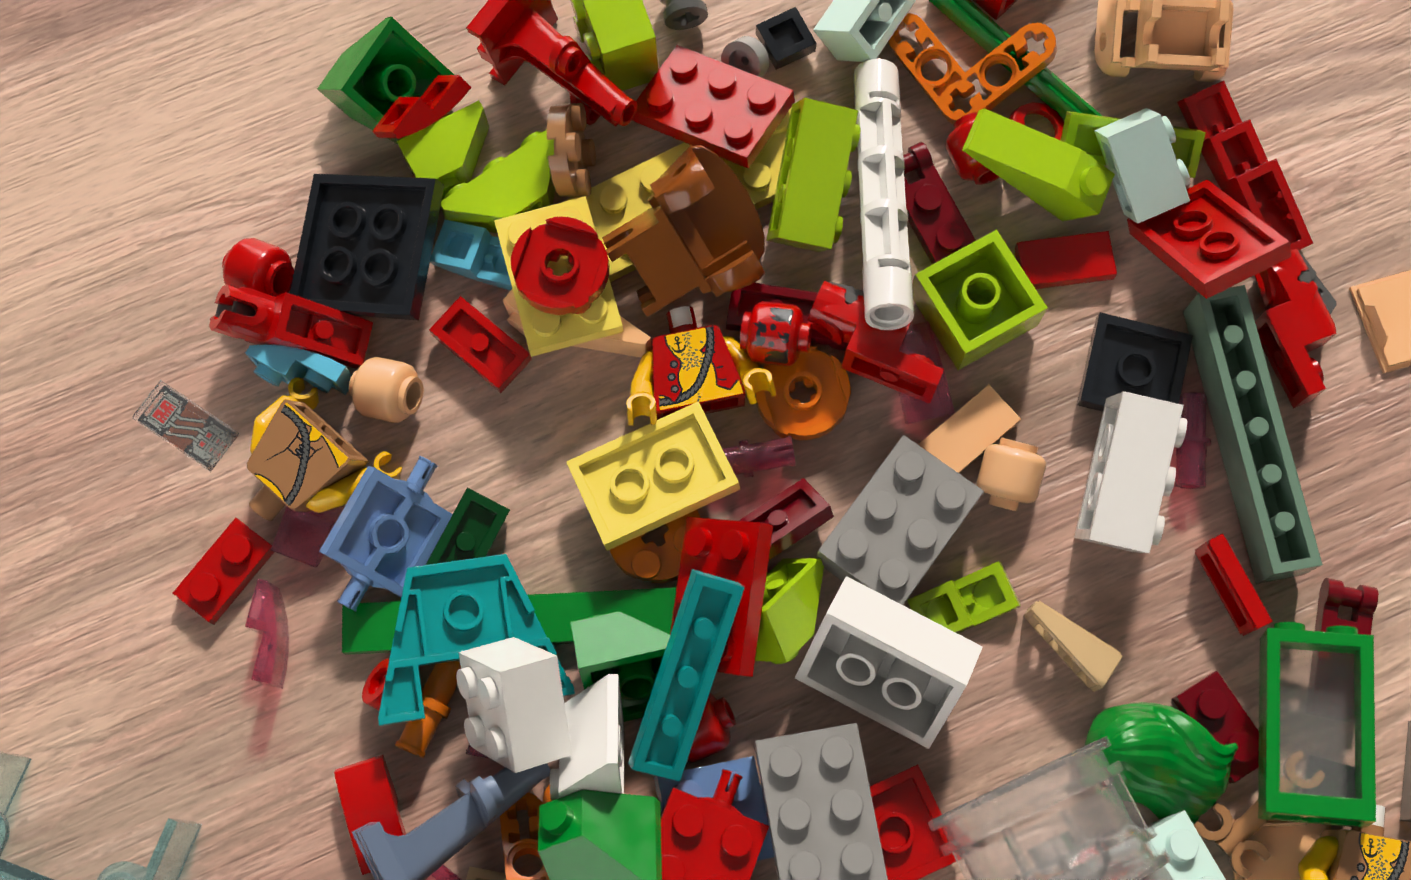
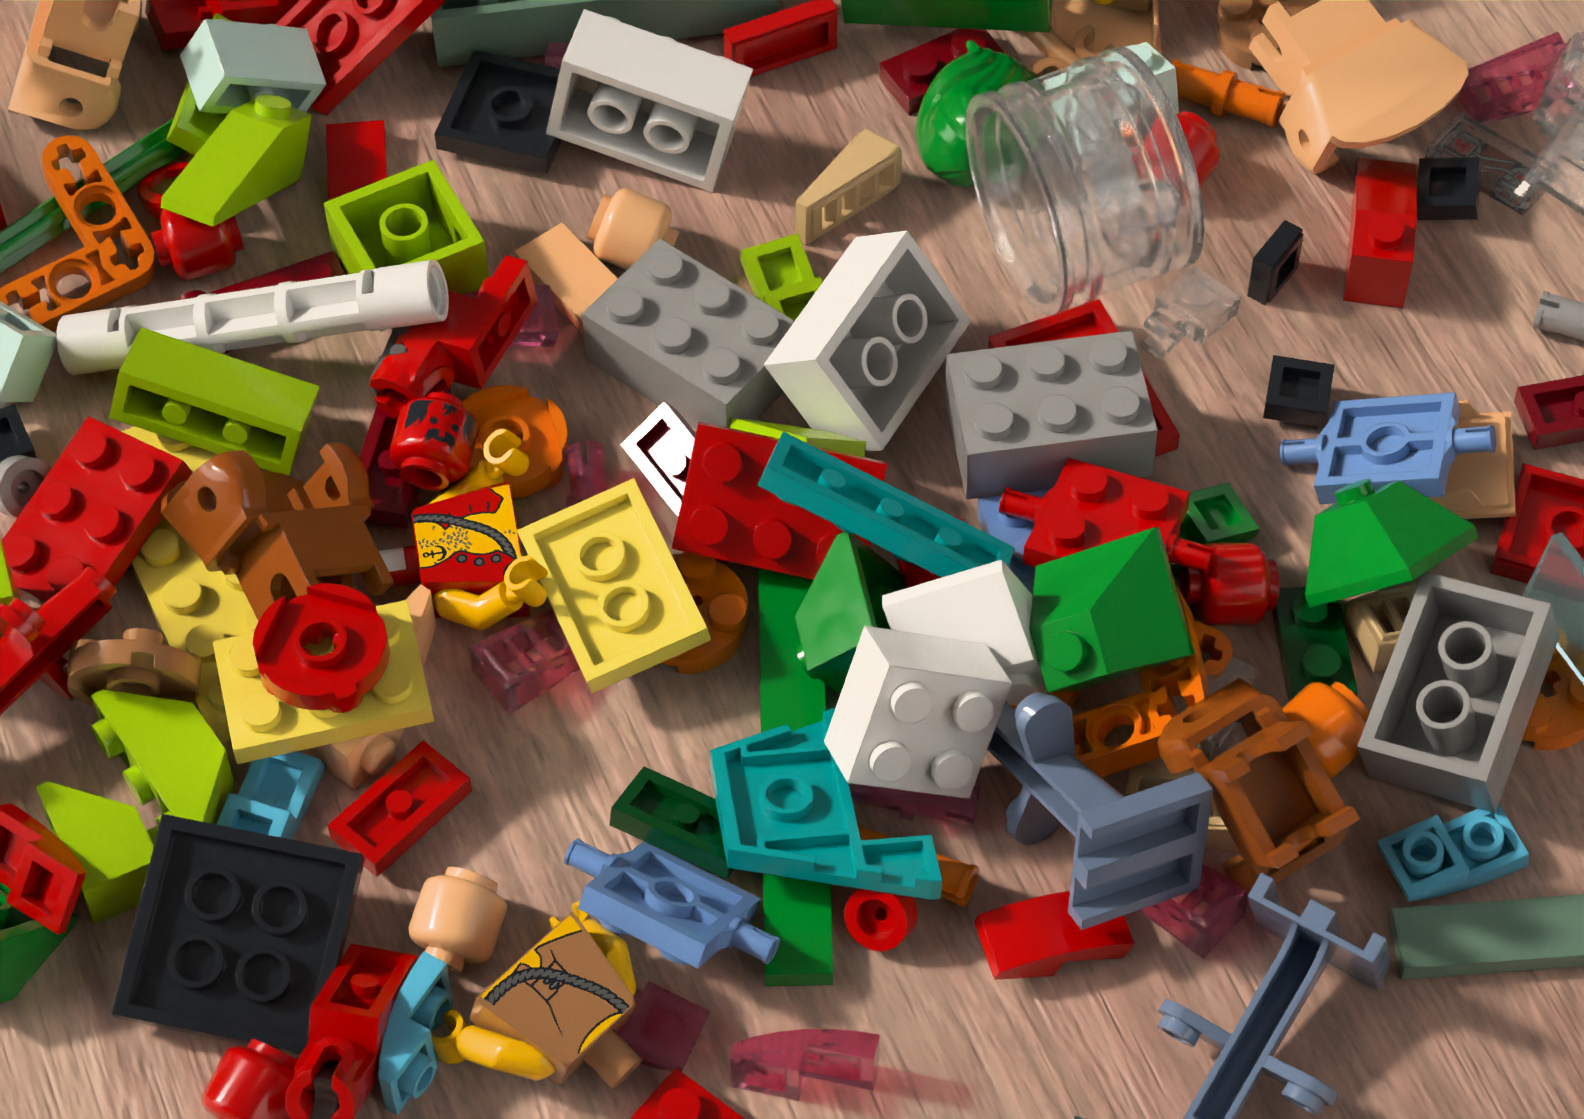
camera: 90 degrees left, 20 degrees down
(590, 400) = (520, 687): none -> clear pink slope

